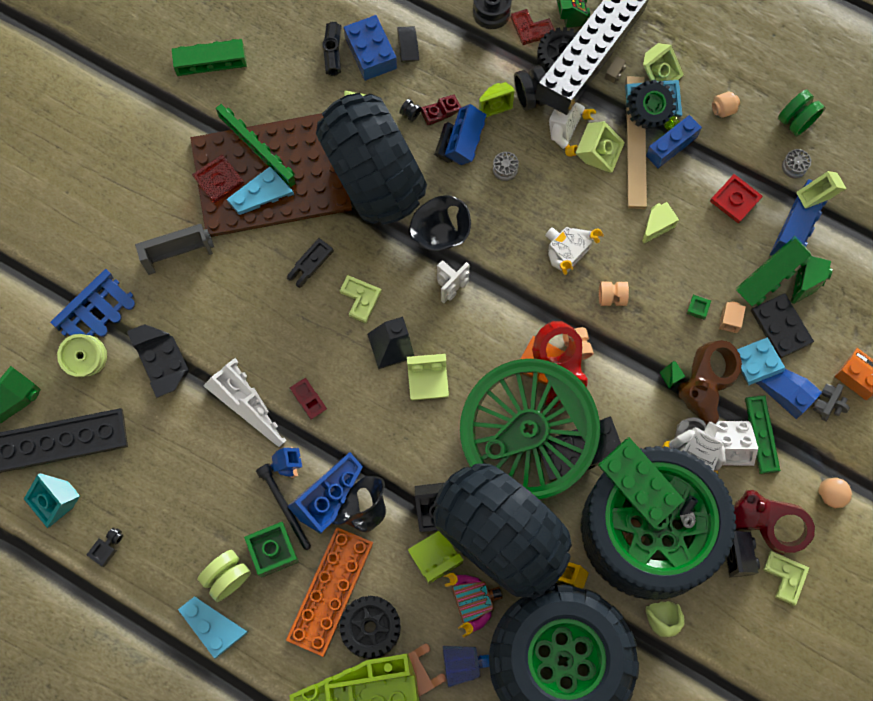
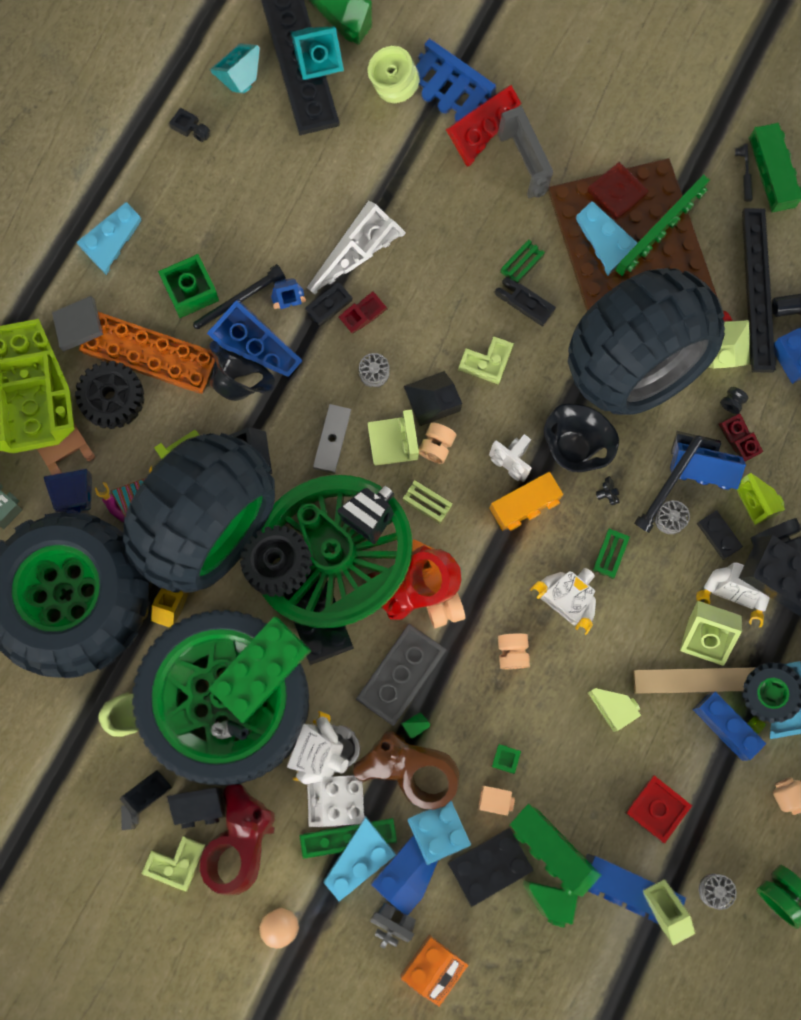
camera: 80 degrees right, 5 degrees up
(49, 422) = (317, 51): none -> teal slope
(139, 285) = (481, 124): none -> red wing
(159, 357) = (399, 156): black piece -> none
(190, 80) = (747, 178): none -> black piece
(224, 575) = (158, 239): yellowish green wheel -> none
(263, 252) = (533, 249): none -> green tile
(298, 427) = (328, 304): none -> black plate
(298, 656) = (77, 323): none -> dark grey tile
(314, 82) = (758, 290): none -> black plate
(363, 391) = (374, 370): none -> light grey wheel
(429, 336) = (438, 440): none -> light nougat wheel
(435, 434) = (334, 426): none -> light grey tile
(482, 211) = (609, 492): none -> black plant
(488, 275) = (526, 502): none -> light orange brick
(492, 342) = (411, 491): none -> yellowish green tile
(501, 393) = (368, 513): none -> black torso
(507, 184) = (646, 520): none -> black piece
(516, 214) = (604, 571): none -> green tile
(520, 133) = (719, 535): none -> black plate
(554, 468) = (287, 572): none -> black wheel
(629, 385) = (401, 674): none -> dark grey tile
(731, 598) = (145, 793): none -> black plate
(750, 613) = (128, 821): none -> dark grey plate
(779, 422) = (360, 859): none -> medium azure wing

